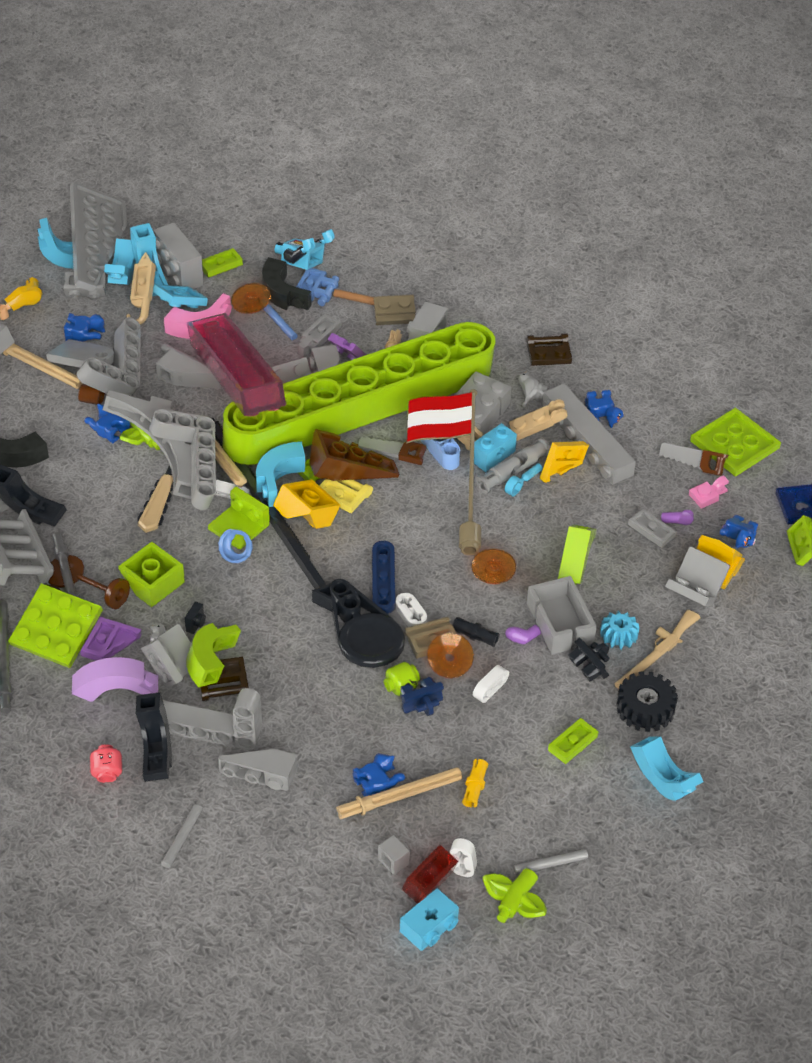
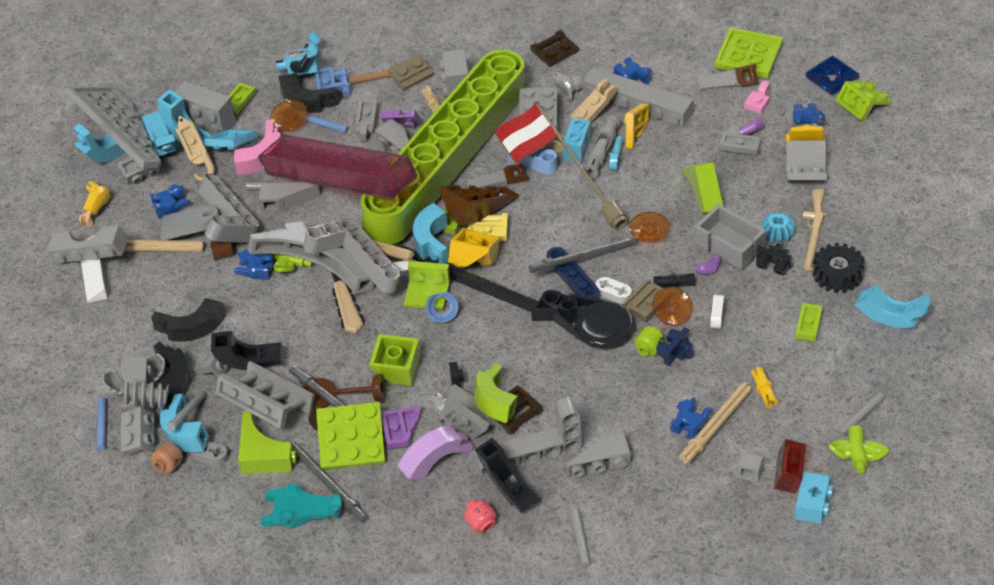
camera: 25 degrees left, 0 degrees up
(364, 554) = (549, 263): none -> flat silver bar
(465, 853) = (805, 435): white beam -> none

